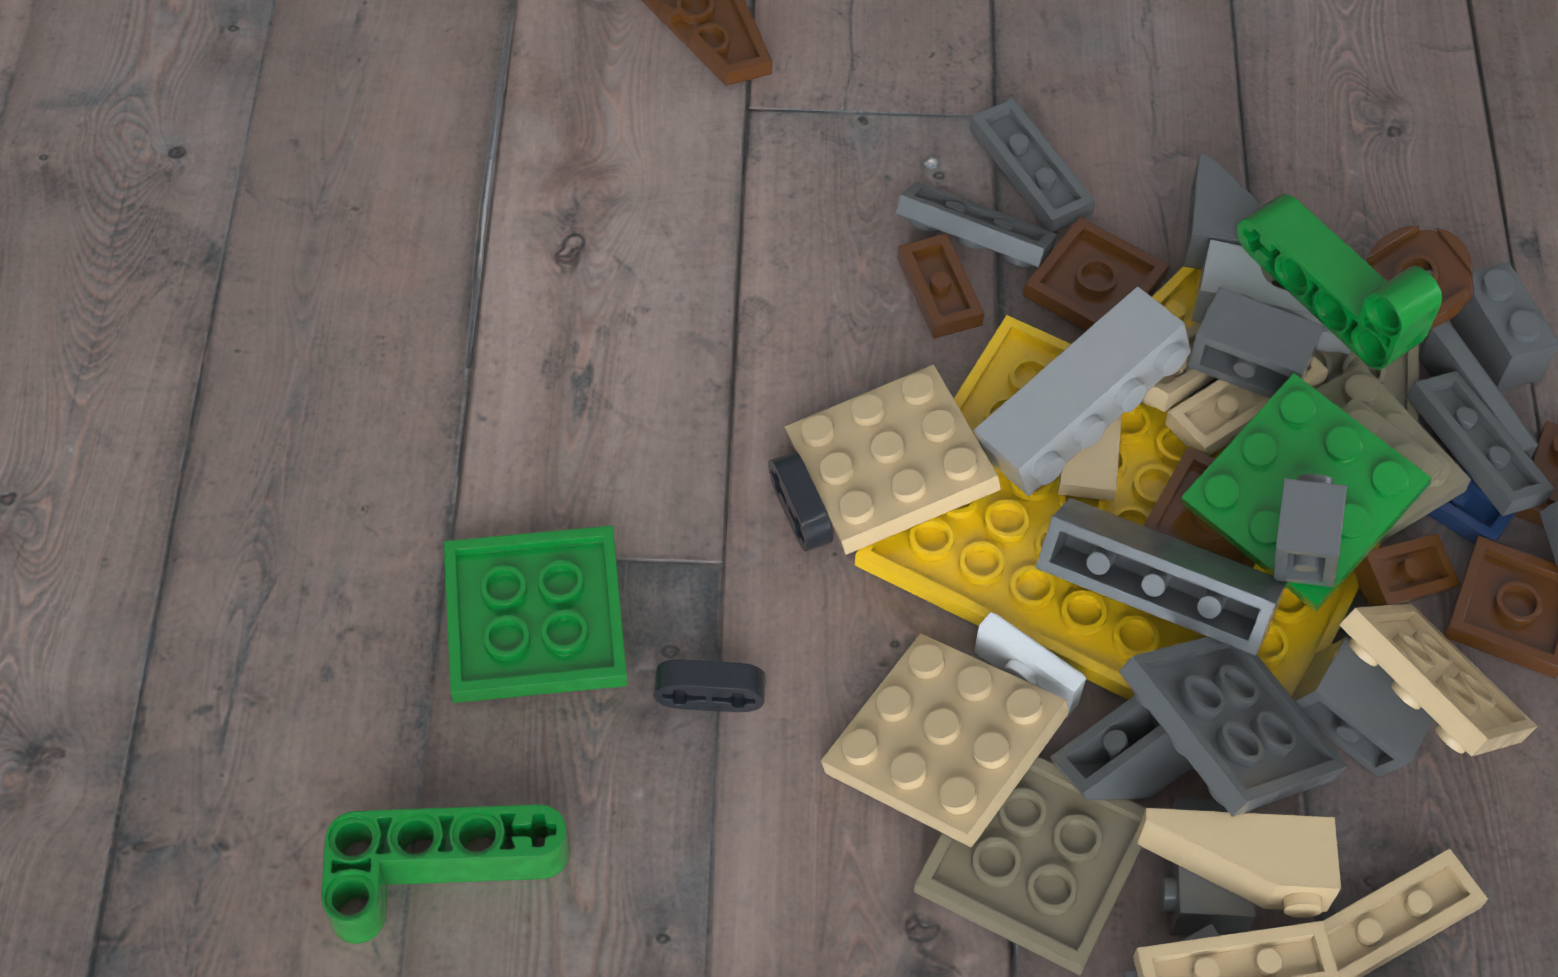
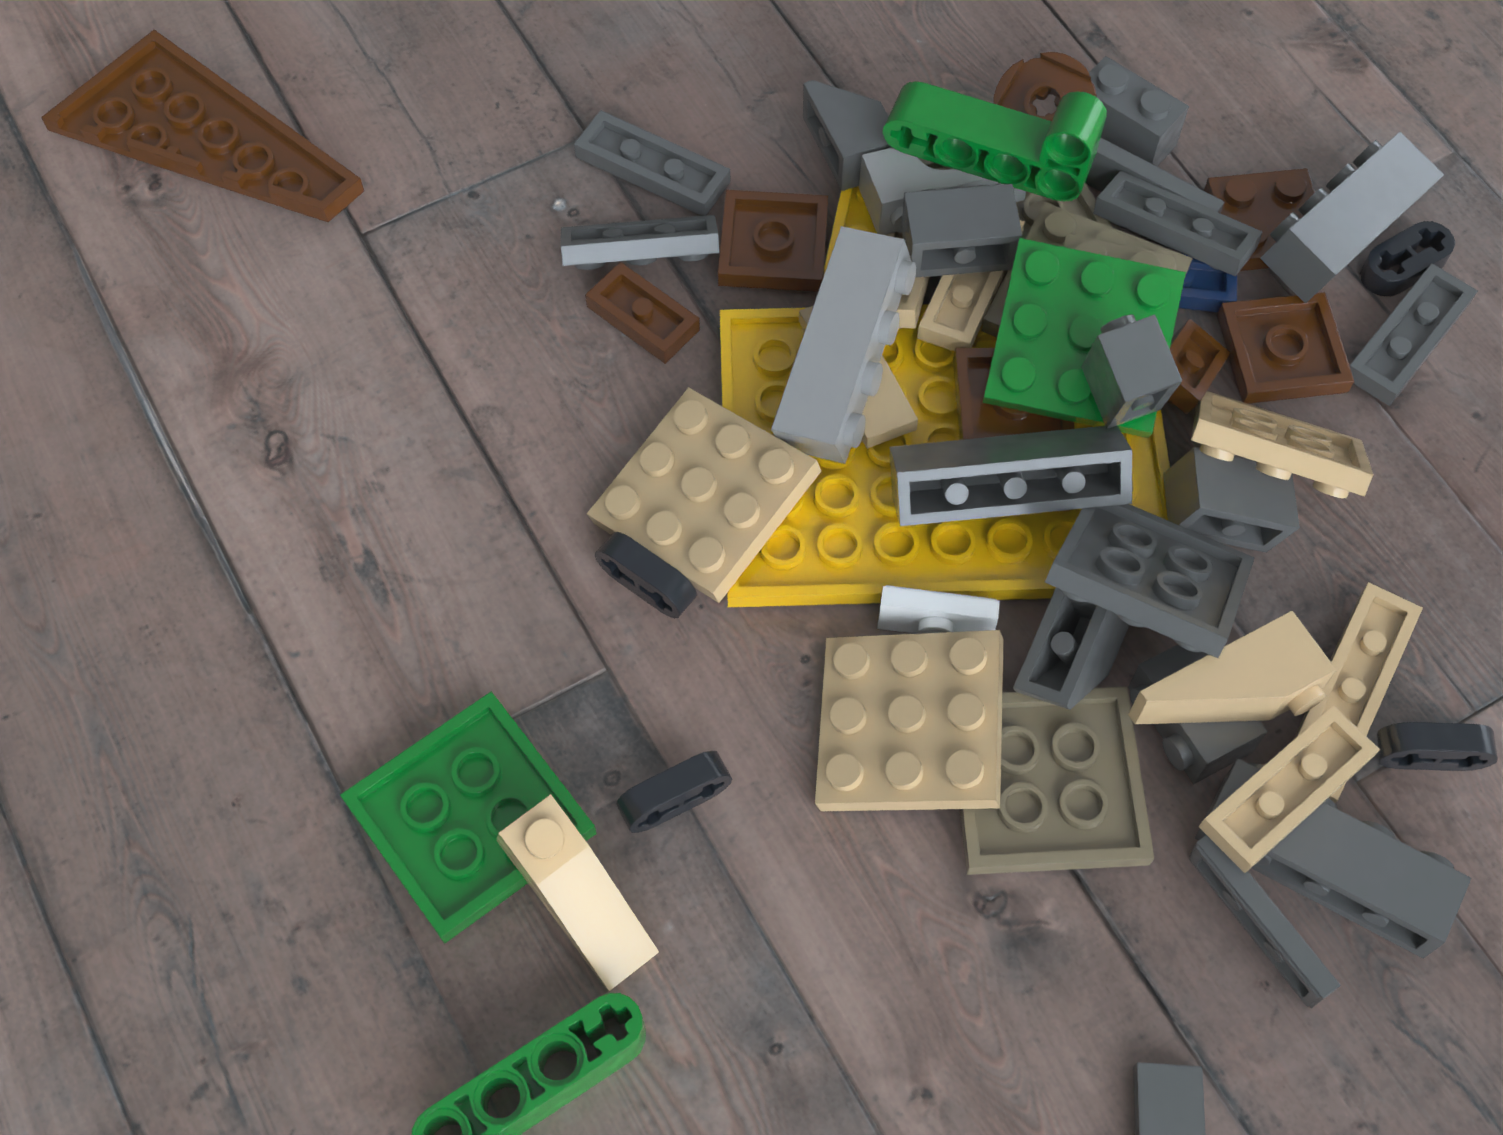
camera: 30 degrees left, 5 degrees up
(576, 716) = (577, 892): none -> slope

